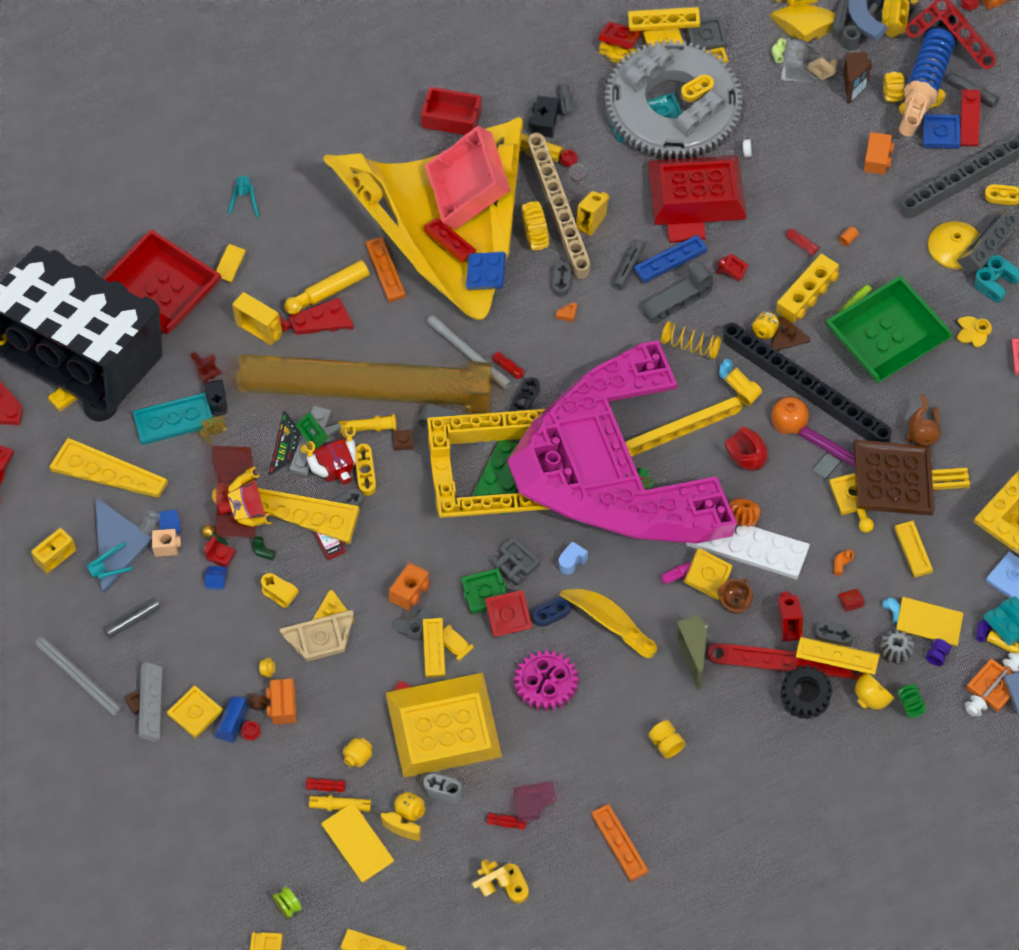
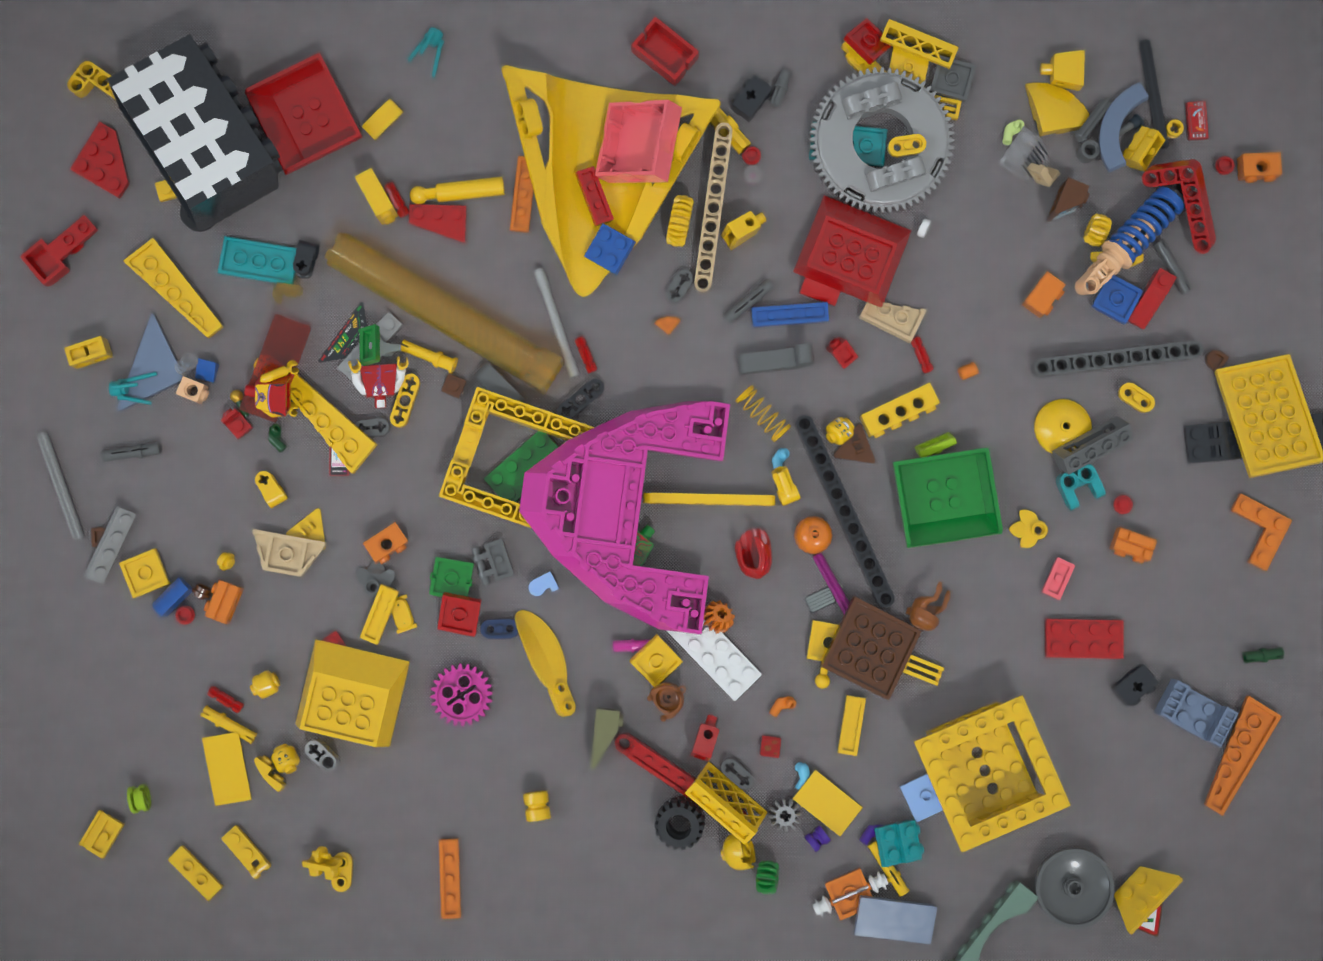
camera: 20 degrees right, 25 degrees up
(207, 368) = (310, 226): clear red arm -> none
(215, 577) = (224, 444): blue slope -> none
(412, 907) = (246, 851): none -> yellow plate
(505, 821) = (363, 811): red axle -> none
(532, 799) = (393, 803): clear pink tile -> none
(763, 225) = (893, 319): none -> tan wing

